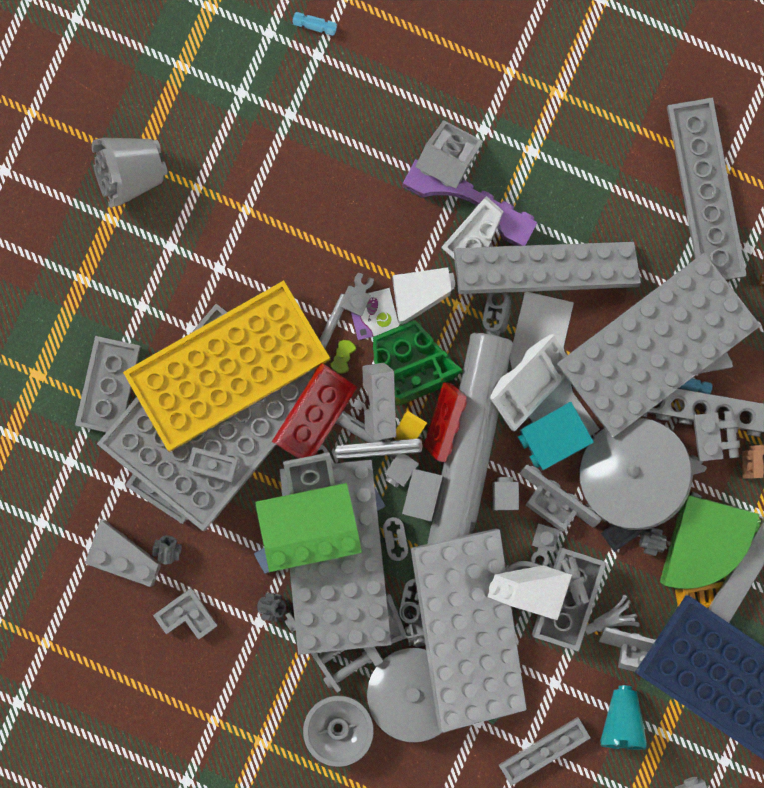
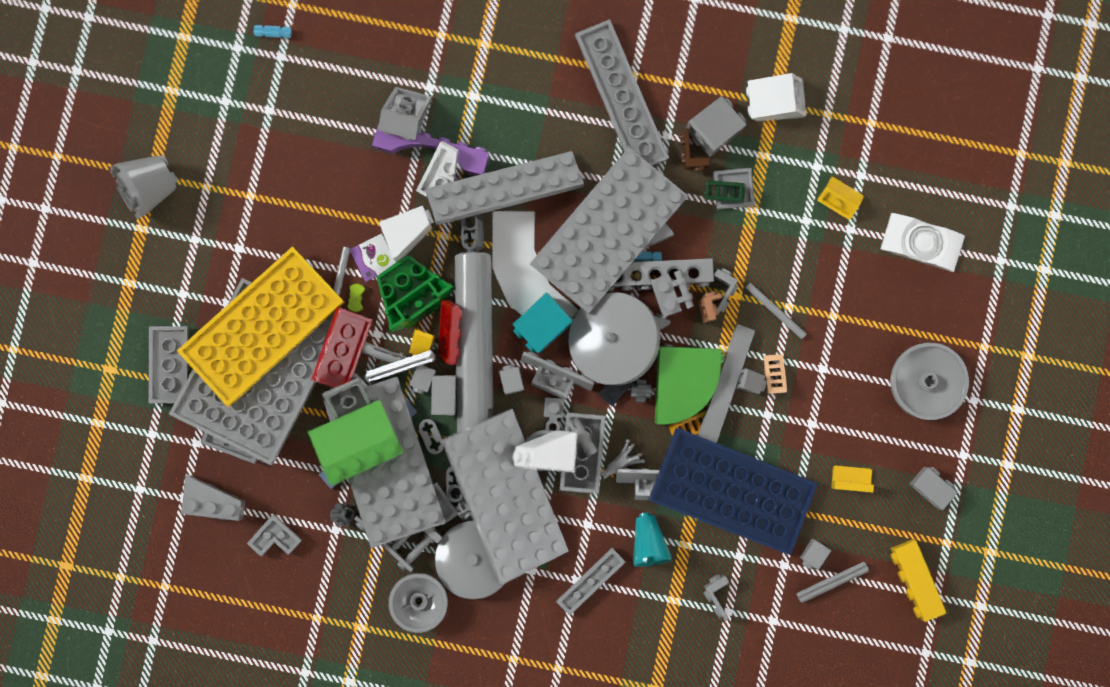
camera: 15 degrees left, 0 degrees up
(166, 549) = (246, 487): dark grey gear -> none
(212, 464) = (266, 409): light grey plate -> none
(355, 298) = (355, 248): light grey plate -> none
(380, 418) = (389, 316): light grey arch -> none
(530, 382) = (511, 284): white slope -> none

